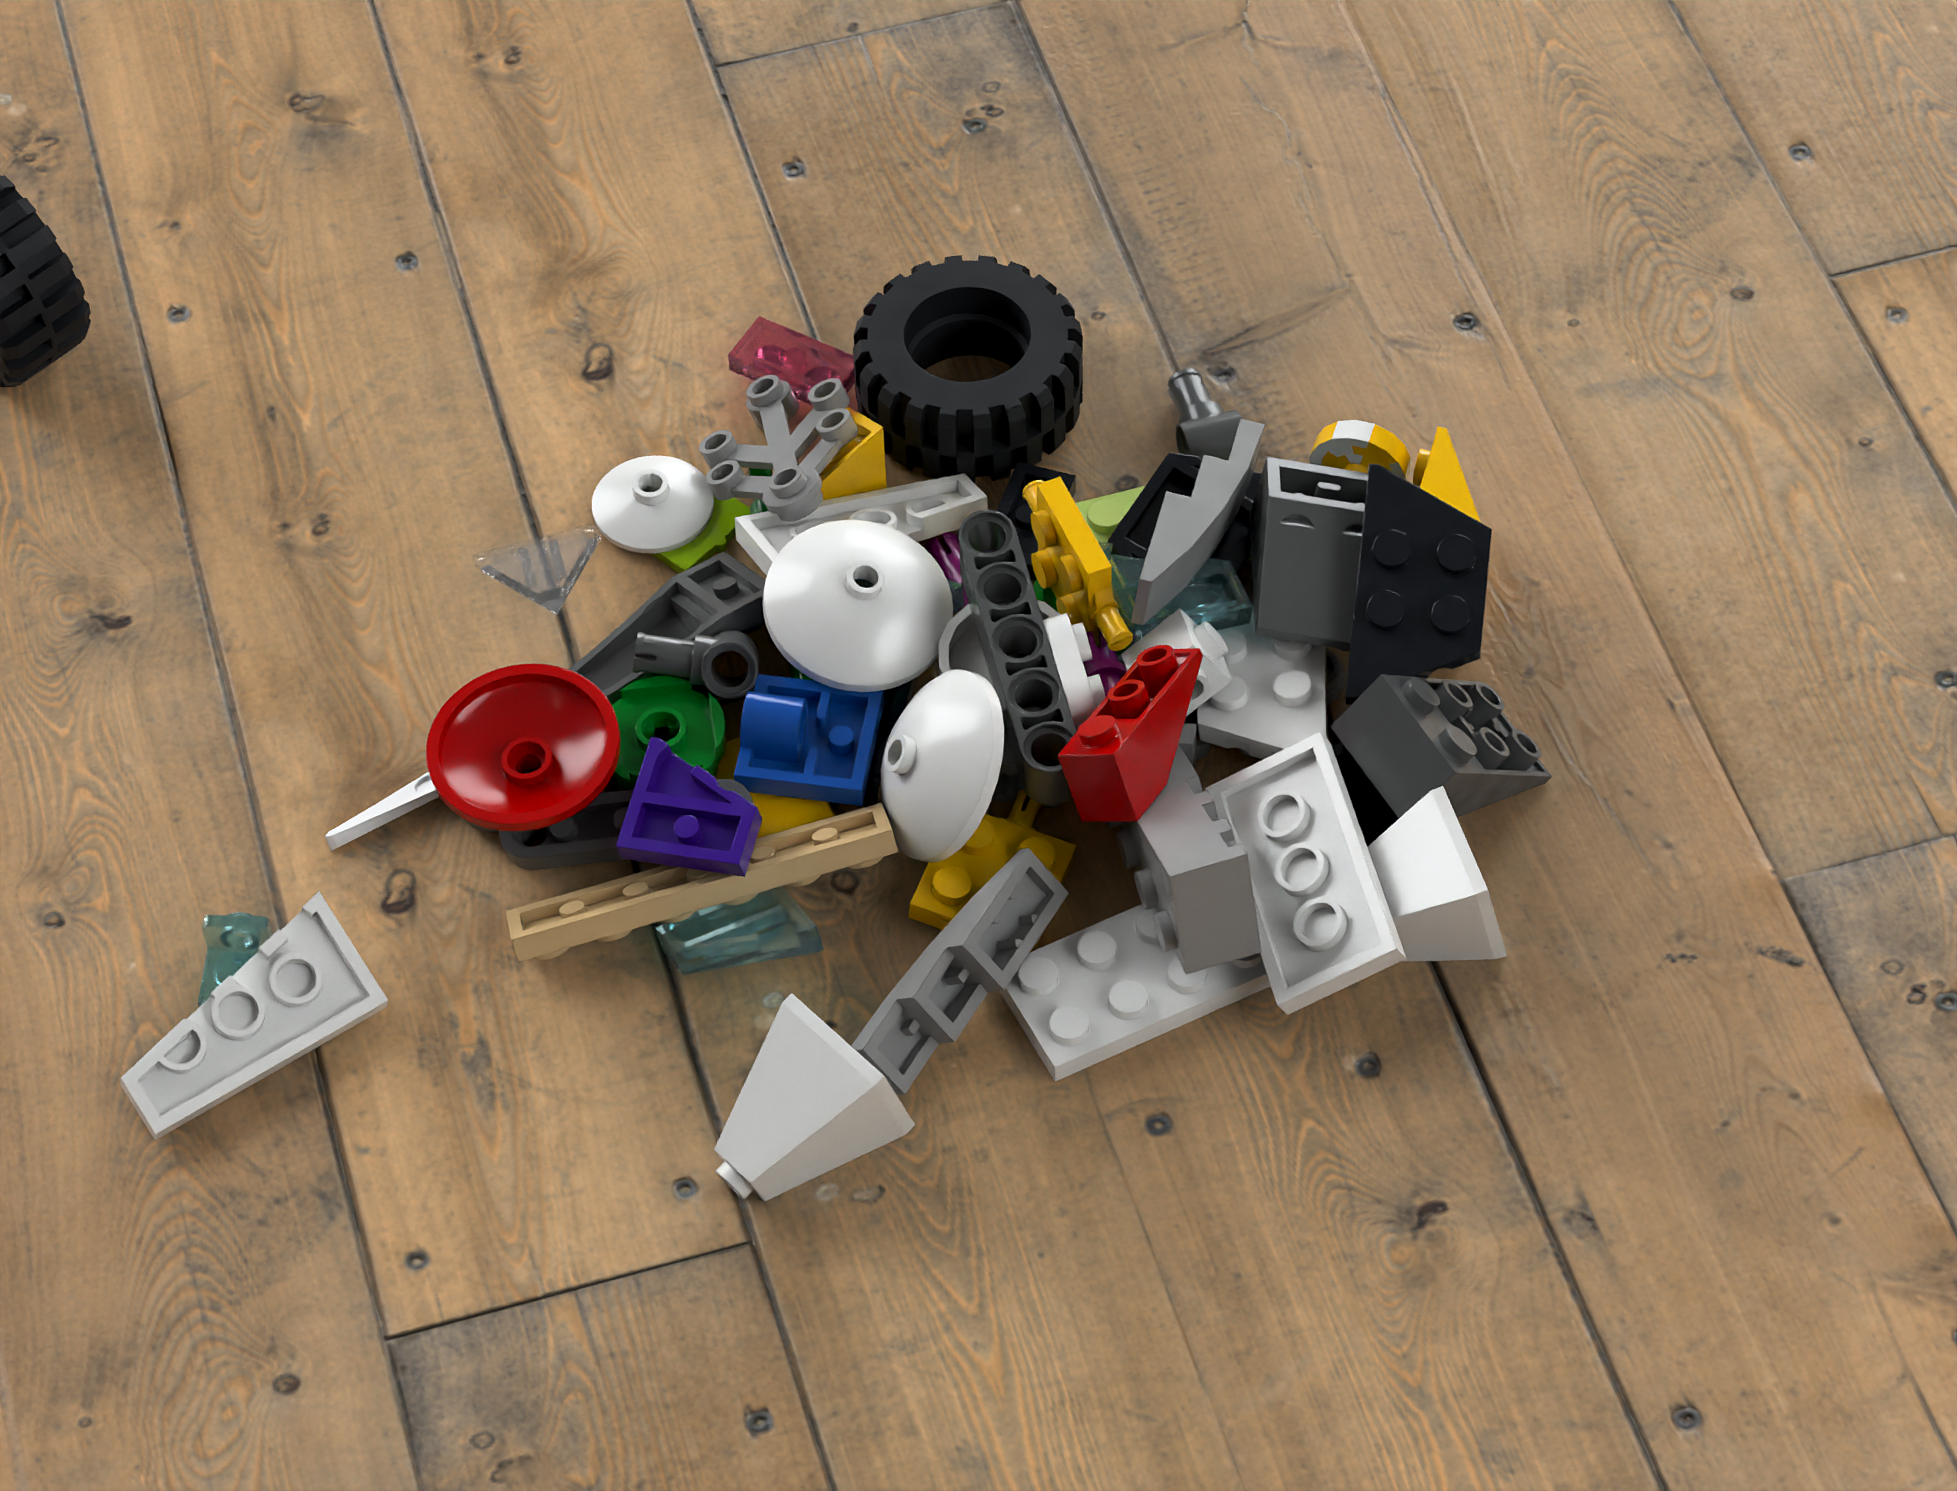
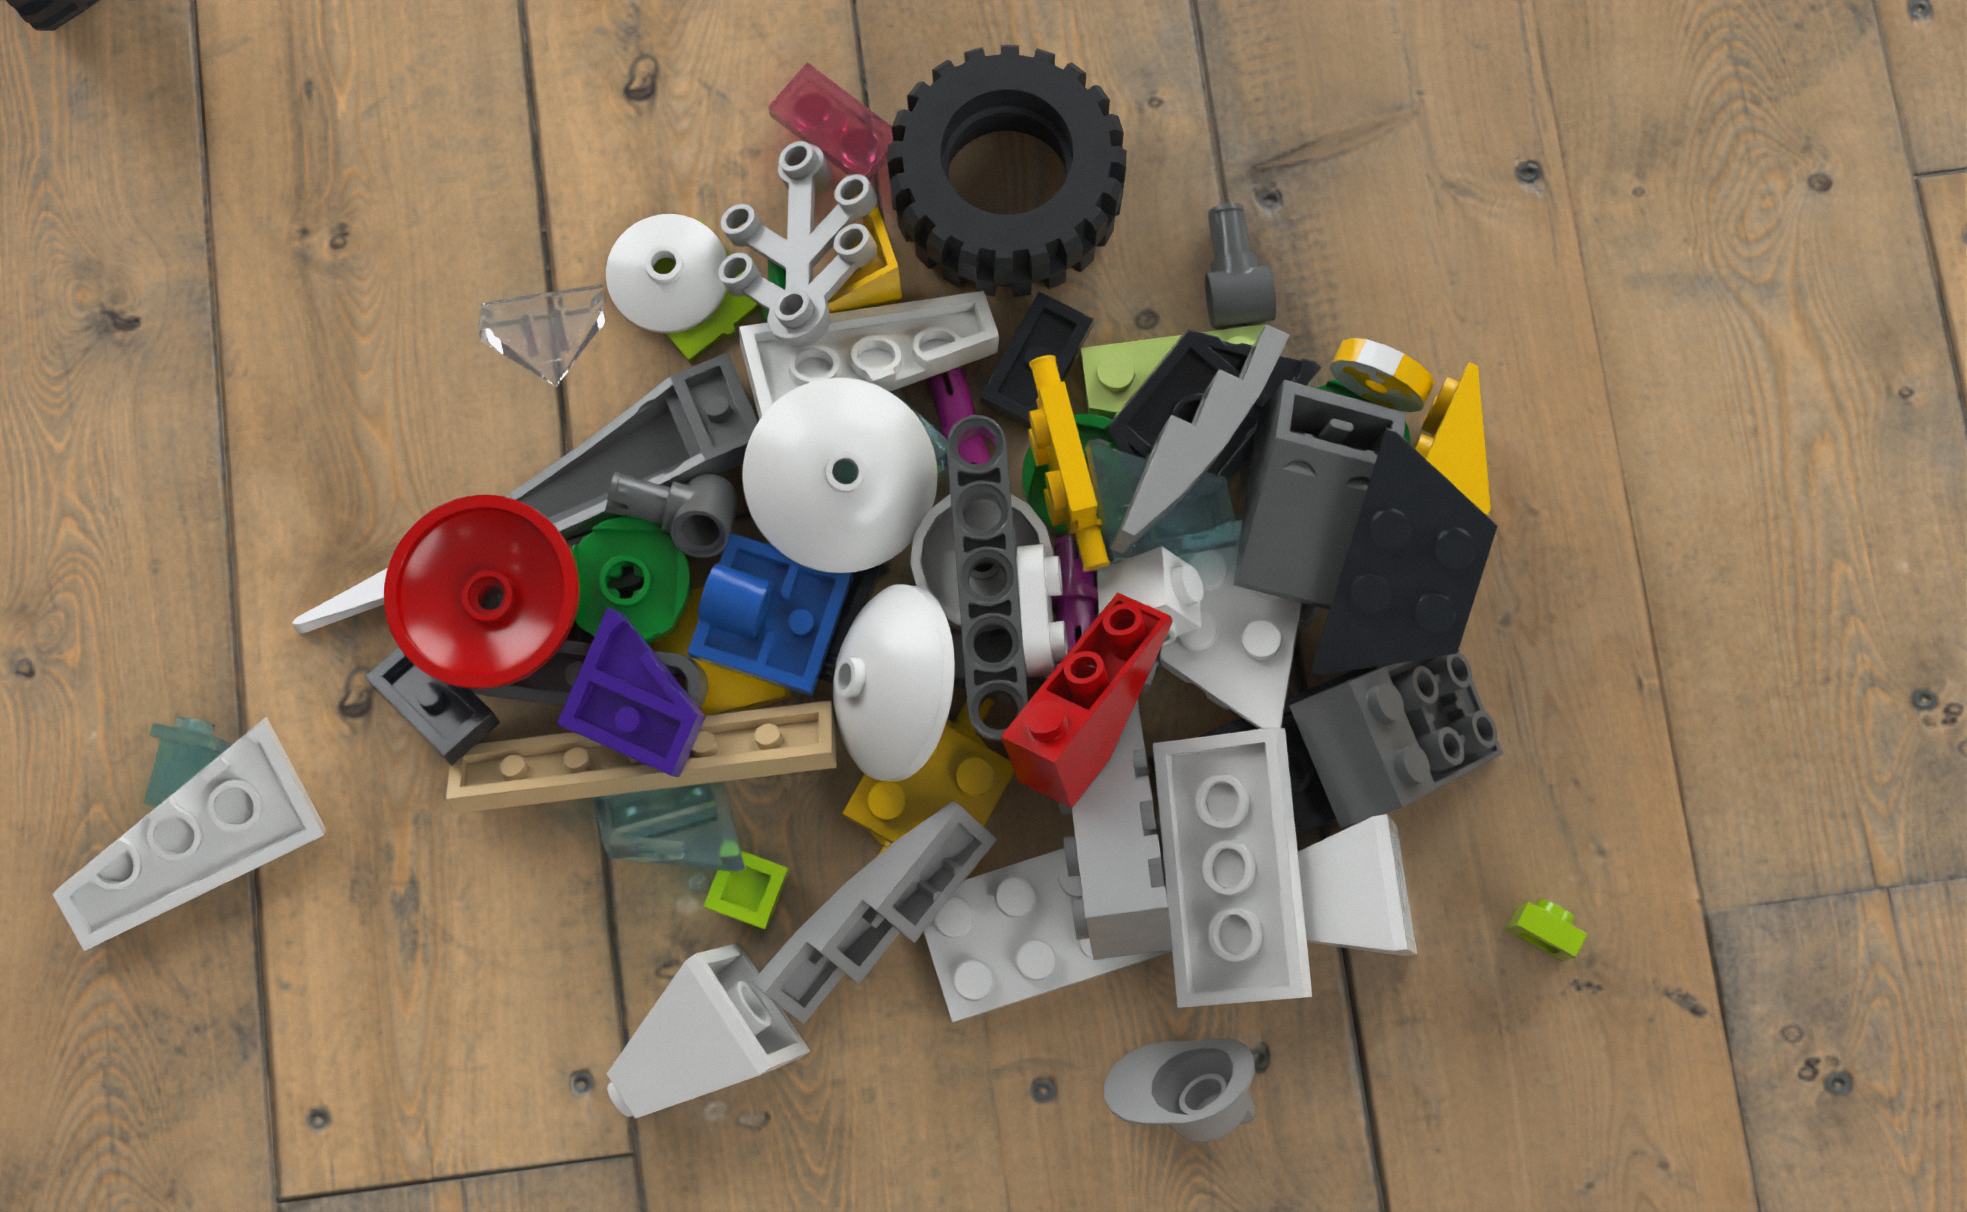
camera: 10 degrees right, 25 degrees up
(481, 869) = (441, 713): none -> plate
(829, 984) = (748, 893): none -> lime plate
(1310, 1087) = (1186, 1085): none -> light grey piece
(1626, 902) = (1547, 929): none -> lime plate

